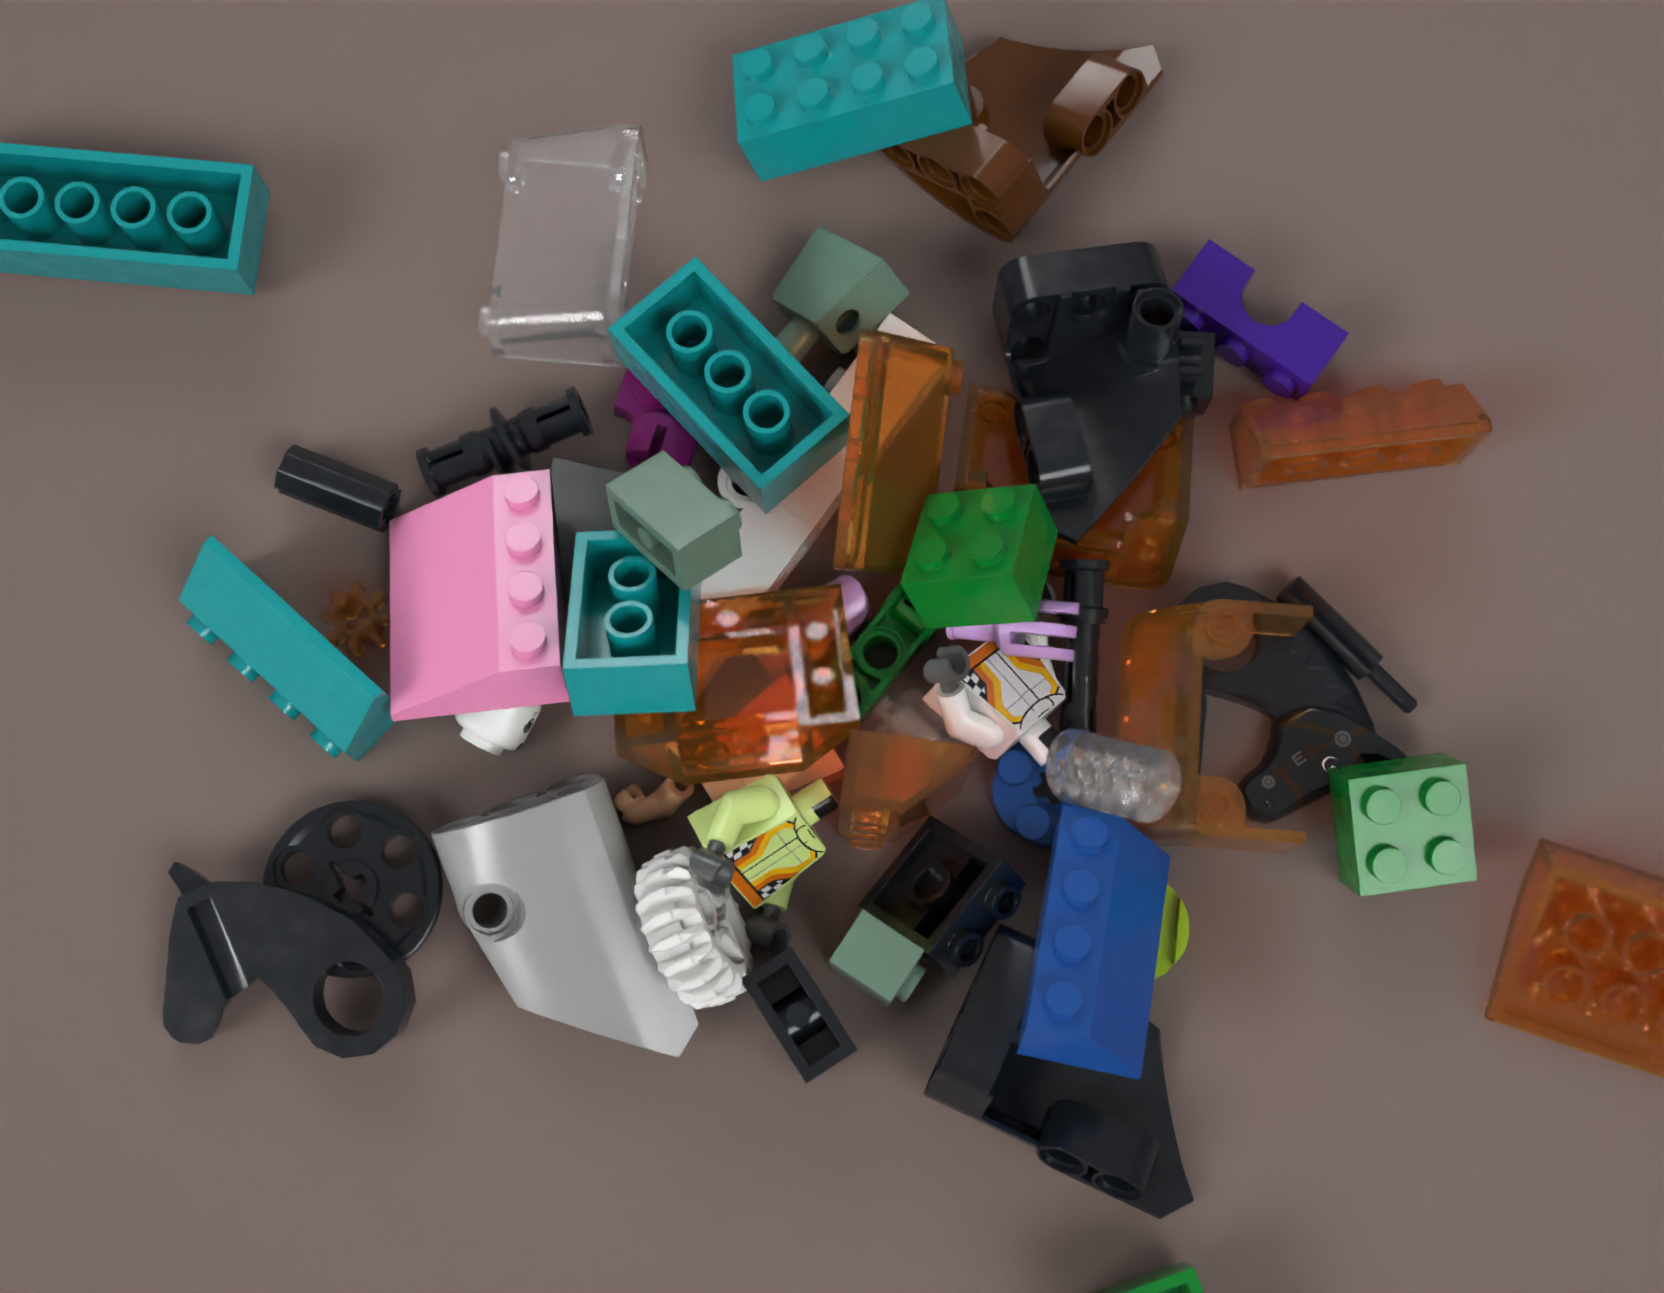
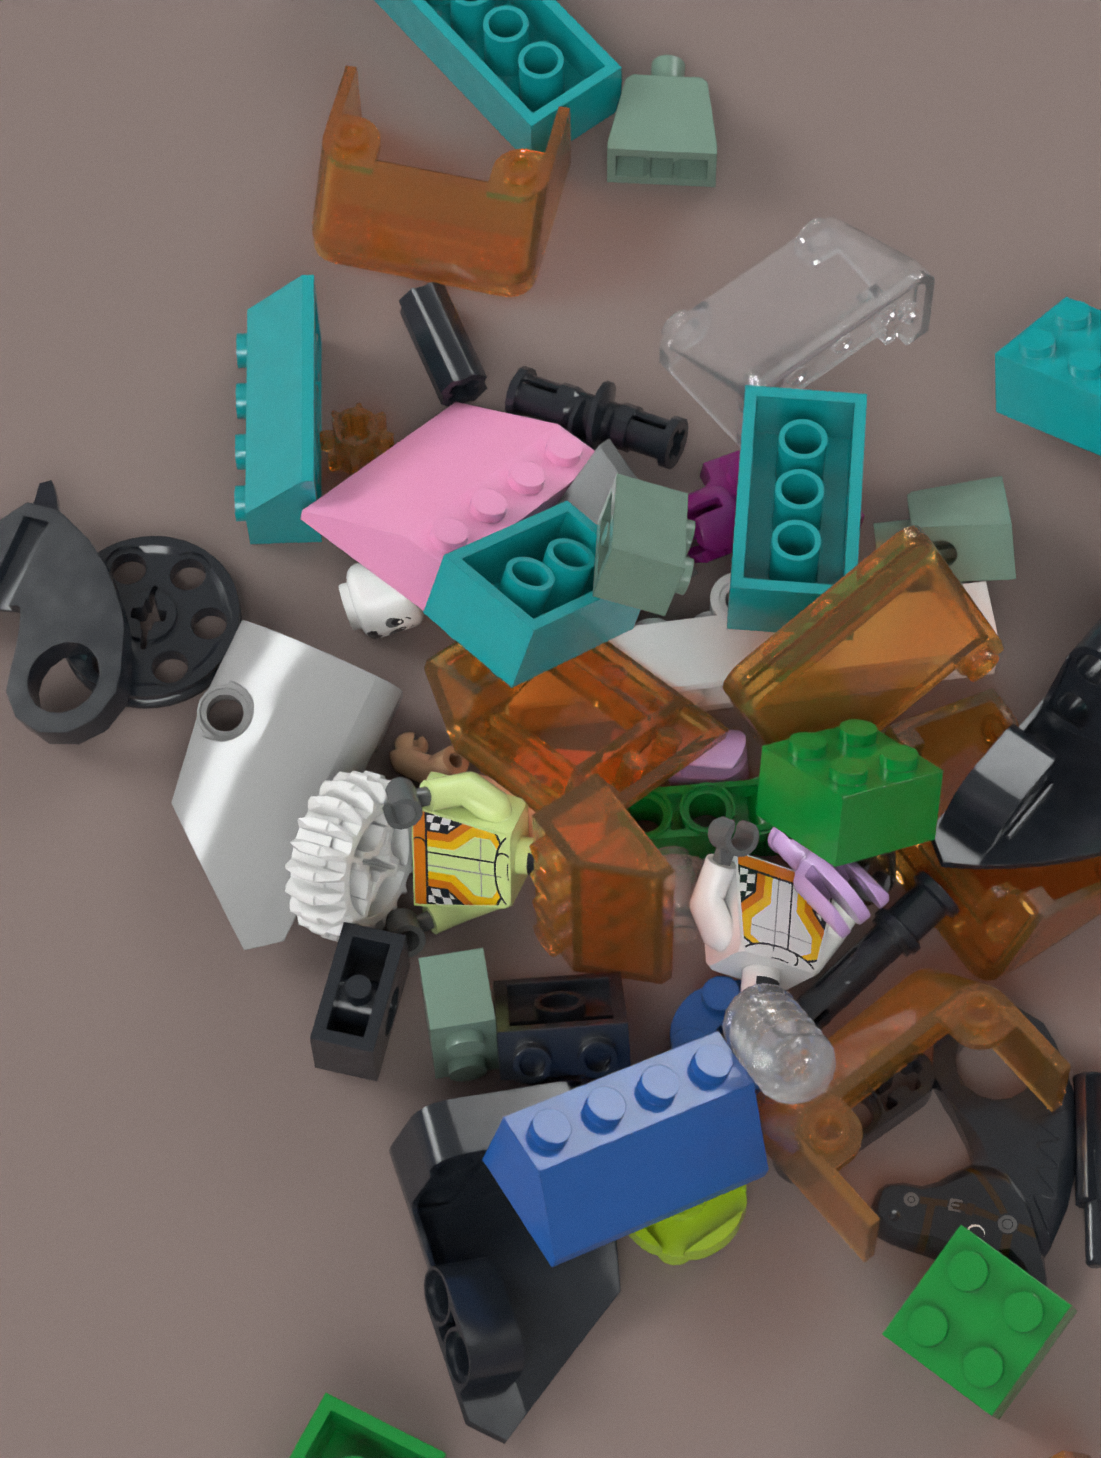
camera: 50 degrees right, 15 degrees down
(228, 411) = (431, 221): none -> clear orange windscreen
(321, 179) = (663, 129): none -> sand green torso

